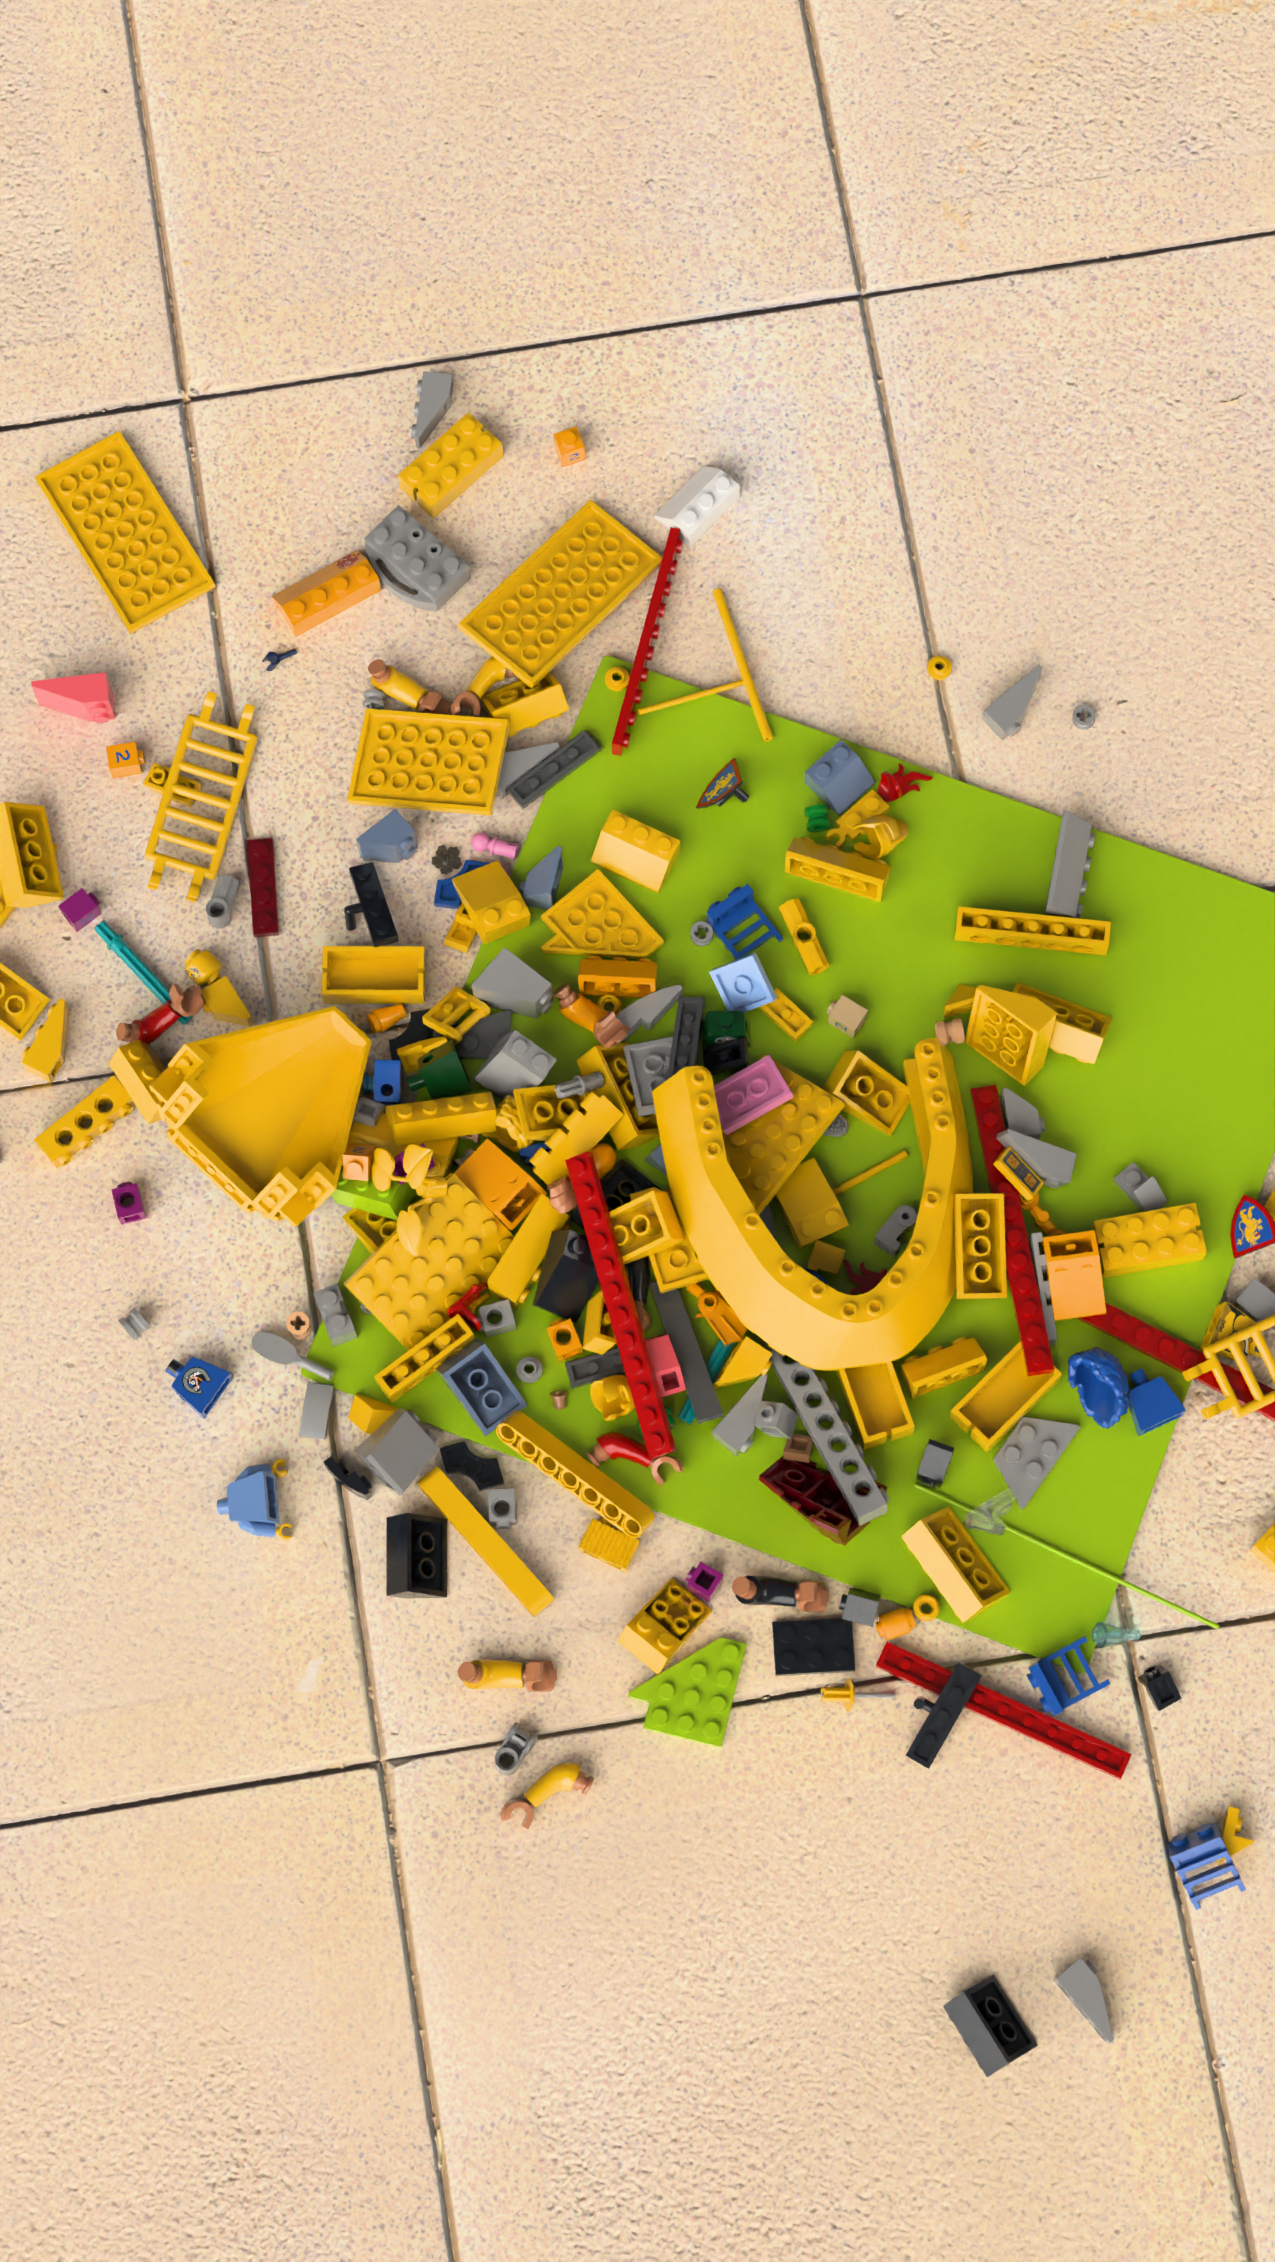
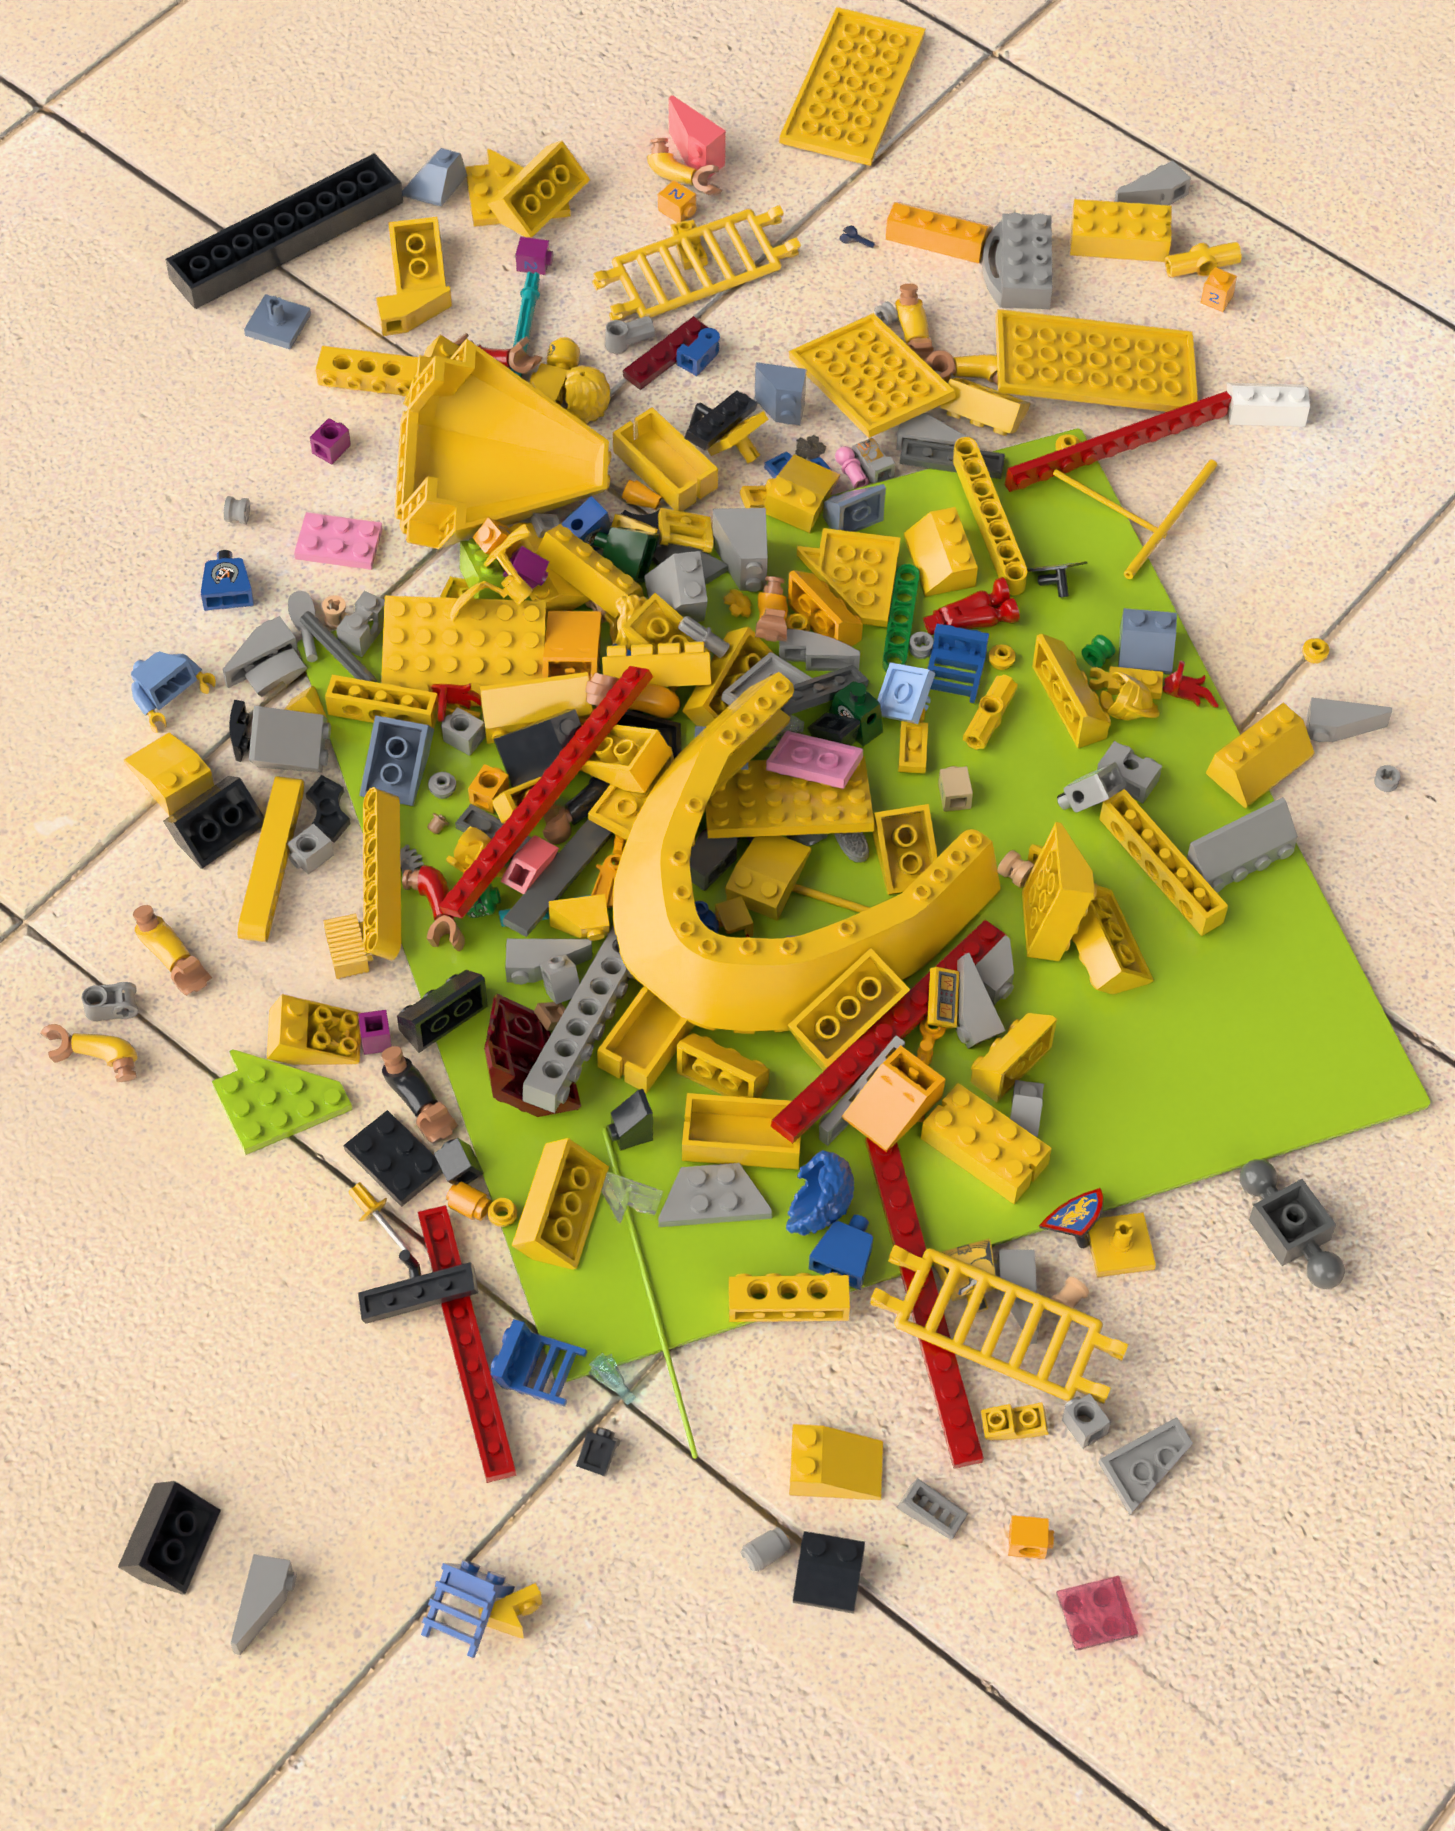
camera: 45 degrees right, 15 degrees down
(82, 738) = (668, 168): none -> piece
(228, 1270) = (338, 541): none -> bright pink plate
(261, 986) = (587, 393): none -> yellow hair
(286, 855) = (700, 352): none -> blue leg
(287, 1396) = (262, 644): none -> light grey slope
(339, 1556) = (171, 772): none -> yellow slope
(341, 1351) = (335, 647): none -> dark grey axle
(401, 900) = (739, 437): none -> yellow tile
(505, 826) = (874, 461): none -> light grey leg
(529, 431) = (1203, 259): none -> yellow piece
(552, 1030) = (738, 603): none -> yellow plant
(579, 1448) = (408, 860): none -> light grey piece
(642, 800) = (985, 505): none -> yellow beam
(678, 933) = (901, 608): none -> green beam
(708, 873) = (977, 610): none -> red piece
(727, 1520) = (443, 1009): none -> black slope
(762, 893) = (1002, 662): none -> yellow plate
(926, 896) = (1143, 776): none -> light grey brick
(935, 925) = (1092, 788): none -> light grey torso
(1000, 786) = (1262, 756): none -> yellow slope
(1097, 1163) = (1013, 1054): none -> yellow slope
(1135, 1504) = (776, 1308): none -> yellow brick

